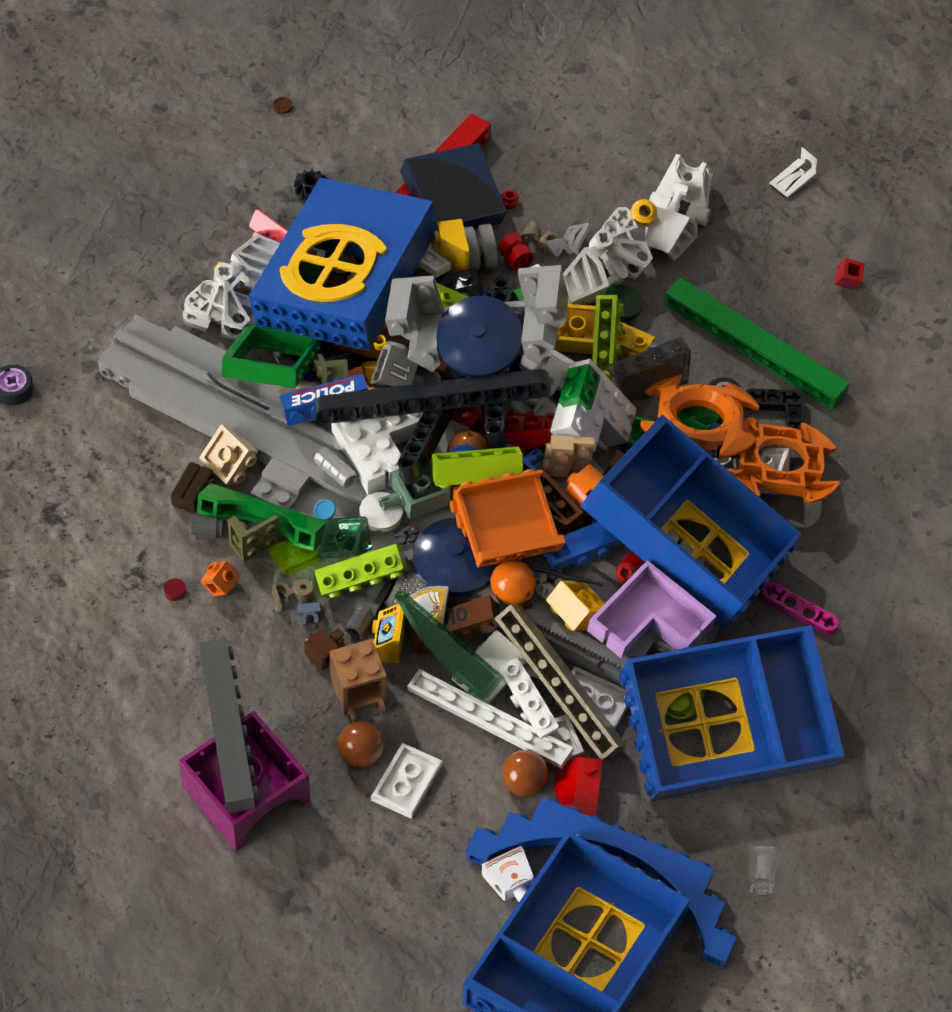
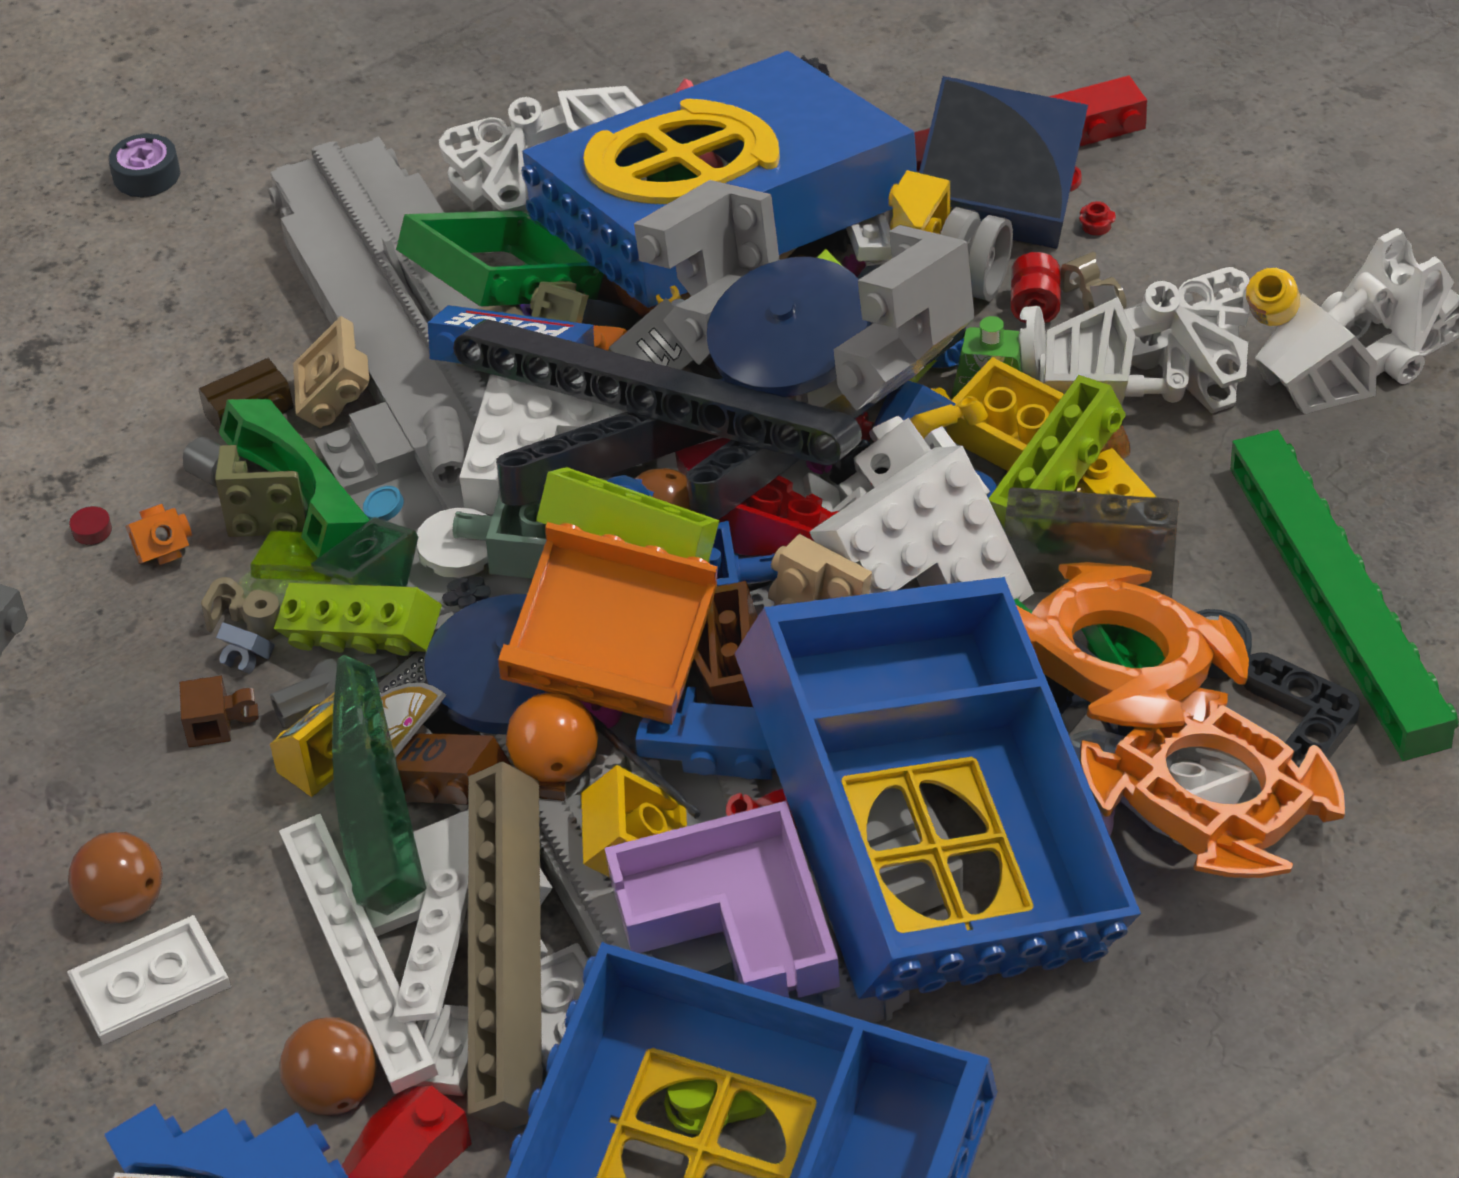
camera: 40 degrees right, 10 degrees down
(358, 677) = (203, 772): medium nougat container -> none
(580, 386) = (909, 481): green bracket -> none
(630, 298) = (1159, 434): dark green tile -> none
(797, 611) = (1055, 1056): dark pink beam -> none

